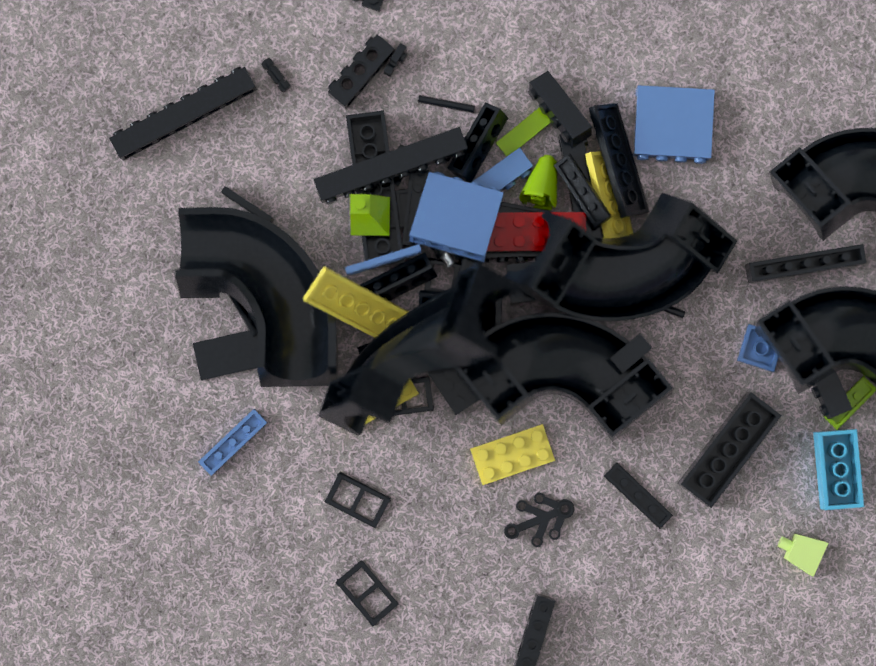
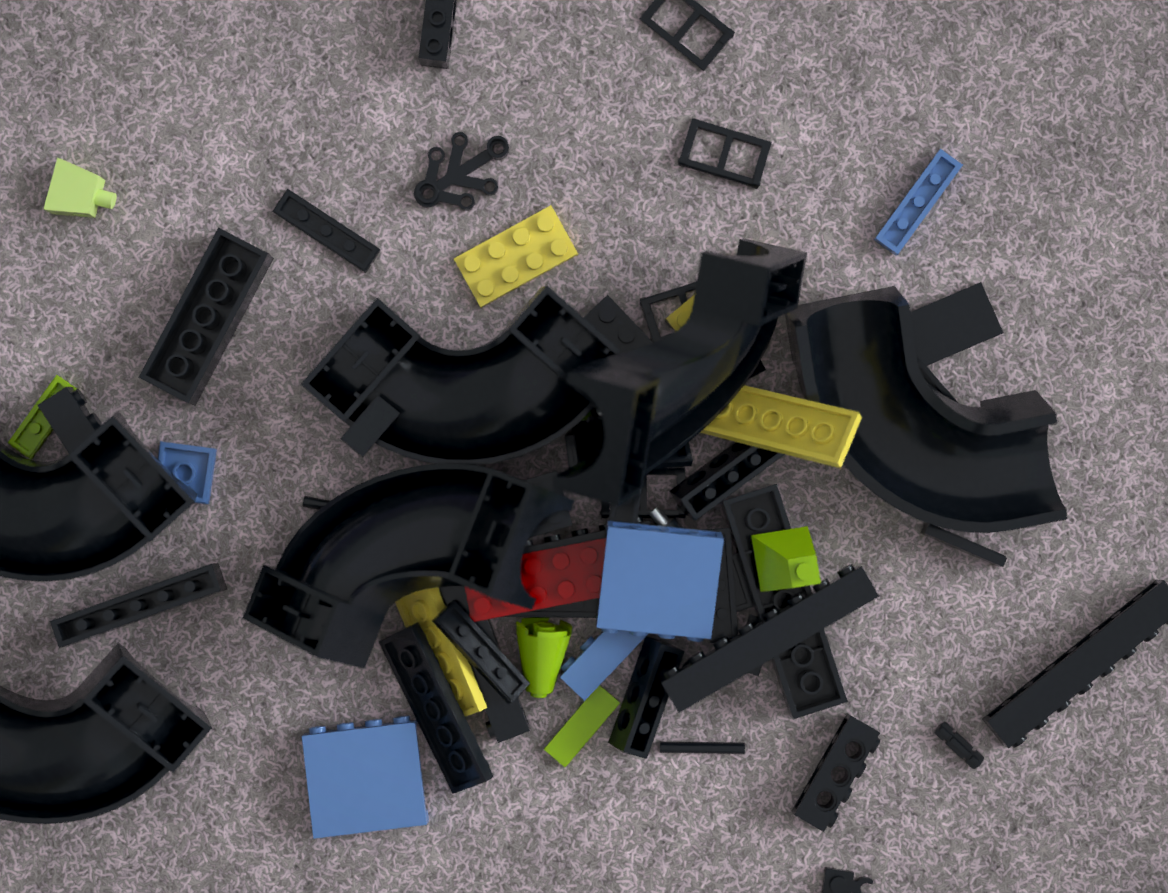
camera: 170 degrees right, 0 degrees up
(383, 260) = (753, 497): medium blue tile -> none
(398, 57) = (785, 805): black plate -> none
(560, 109) = (535, 768): black brick -> none
(838, 469) = (45, 316): medium azure brick -> none

